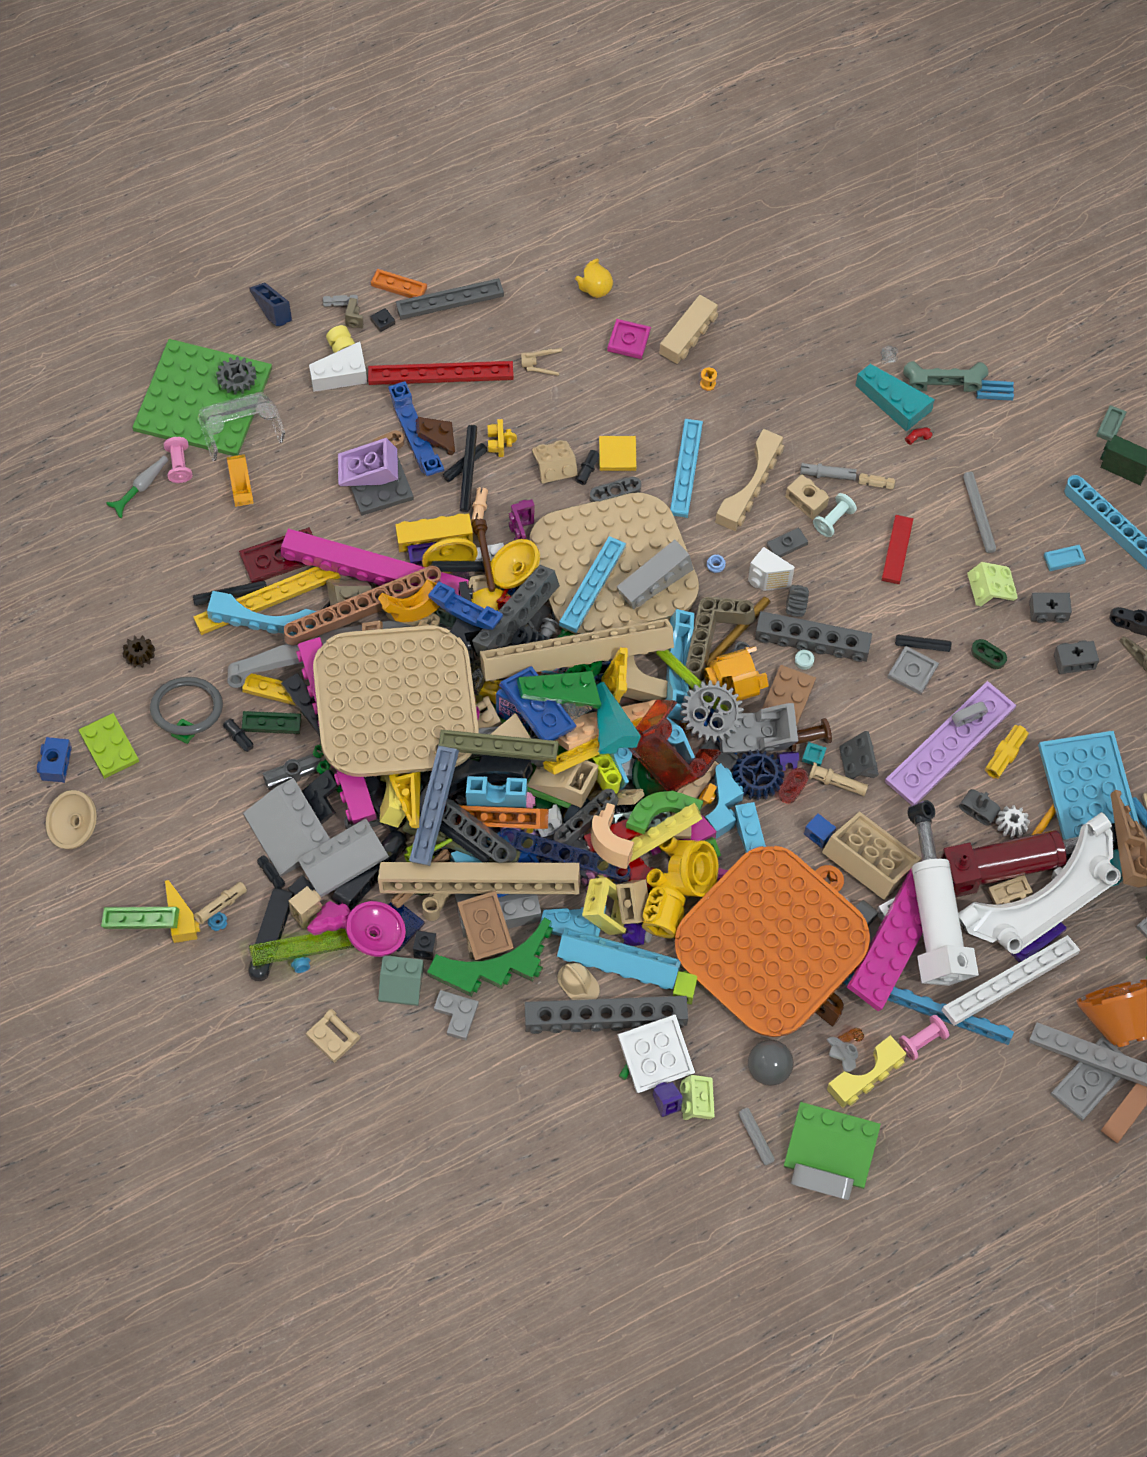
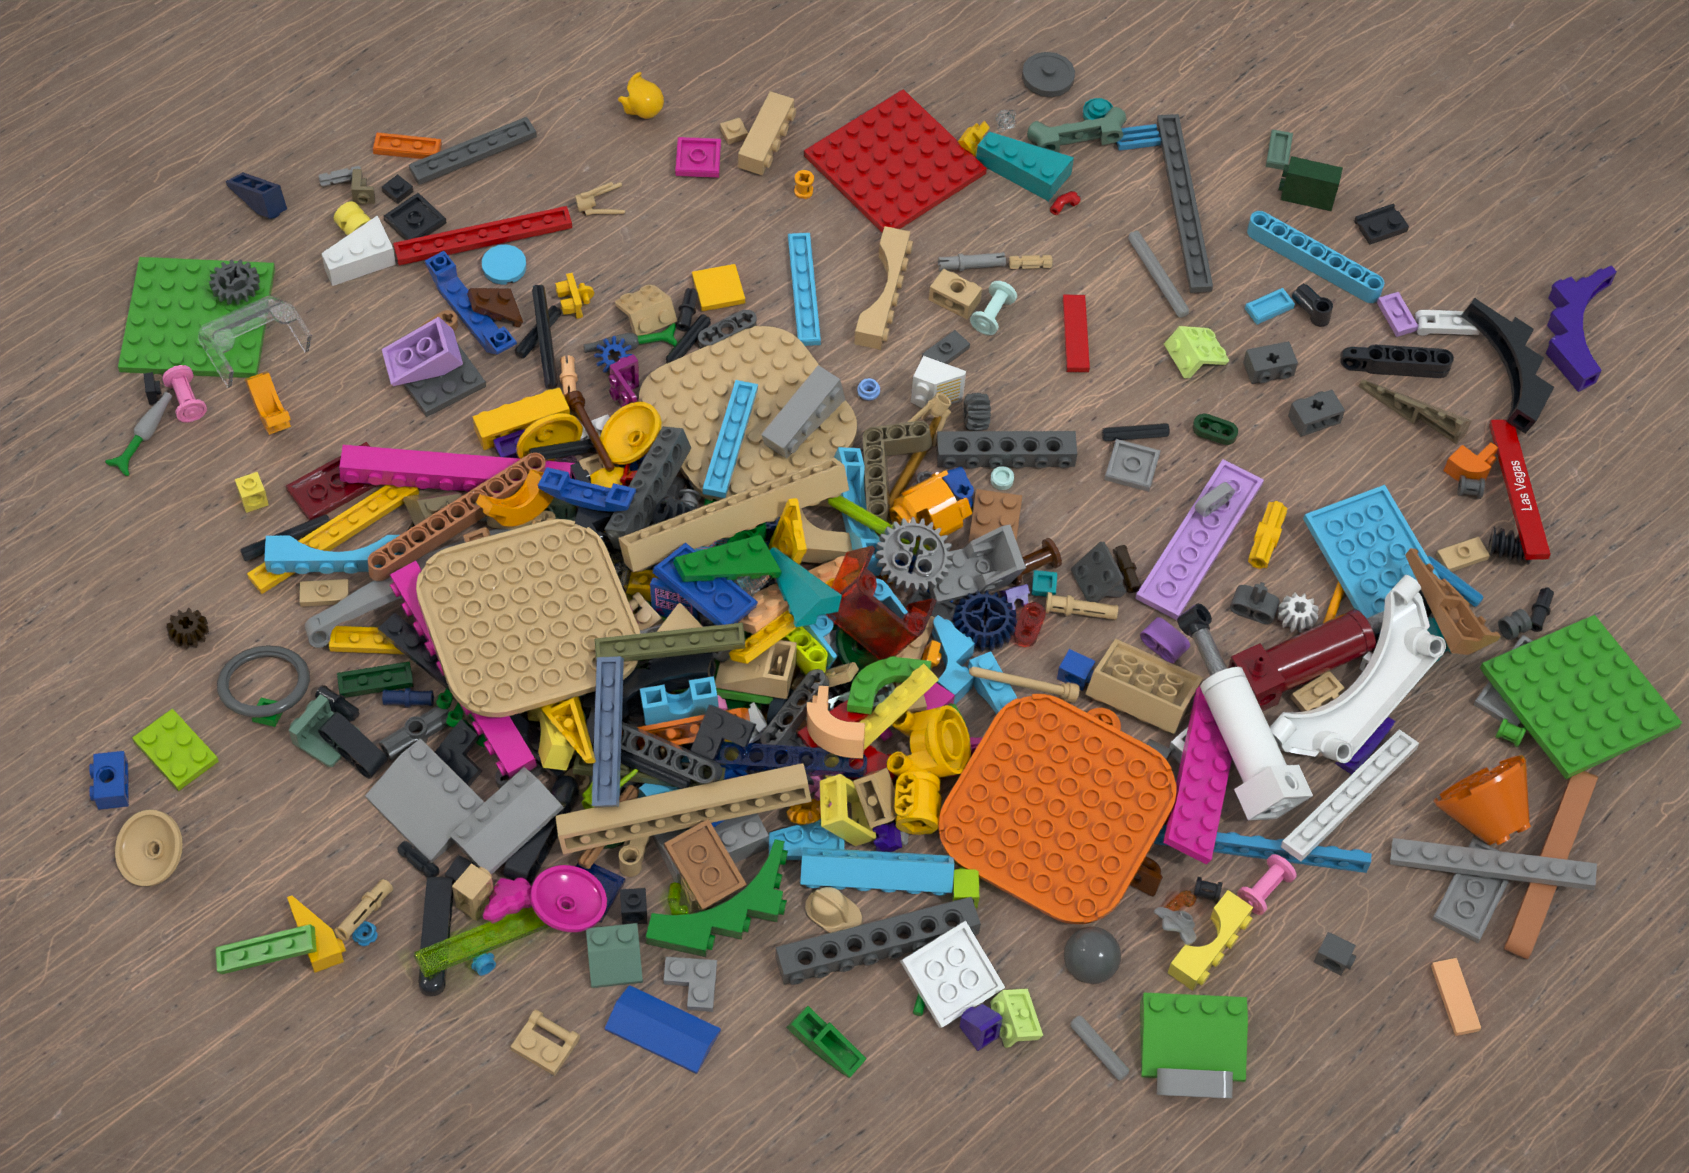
camera: 15 degrees left, 5 degrees down
(154, 450) = (152, 388): none -> black plate
(211, 551) = (251, 492): none -> light yellow brick
(222, 756) = (305, 732): none -> sand green bracket
(241, 771) = (352, 745): none -> black beam
(248, 643) = (323, 592): none -> tan plate
(293, 742) = (408, 697): none -> dark blue pin
(390, 347) = (415, 218): none -> black tile
(424, 1045) = (662, 1029): none -> blue slope
(451, 400) = (504, 264): none -> medium azure tile
(457, 947) = (674, 900): none -> clear neon green arm
(511, 493) = (615, 348): none -> blue gear
(521, 819) = (719, 726): none -> black plate
(537, 485) = (634, 340): none -> piece
(546, 1084) = (826, 1042): none -> green slope
(574, 901) = (805, 813): none -> light orange gear
(583, 492) = (688, 339): none -> black axle
(663, 321) = (733, 131): none -> tan plate
(764, 591) = (936, 407): none -> tan plant
(766, 660) = (959, 484): none -> blue piece
(788, 373) = (895, 162): none -> red plate
(808, 847) = (1068, 692): none -> tan piece
(857, 364) = (973, 136): none -> yellow plate
(881, 1031) = (1216, 888): none -> black bush
(884, 756) = (1127, 568): none -> dark brown pin
(897, 821) = (1165, 640): none -> medium lavender beam
(935, 321) = (1048, 74): none -> dark grey wheel
(963, 1105) = (1335, 954): none -> dark grey brick
(966, 359) = (1096, 108): none -> teal plate
(1017, 455) = (1184, 204): none -> dark grey plate
(1050, 1160) = (1456, 997): none -> light nougat tile
(1100, 563) = (1317, 307): none -> black piece

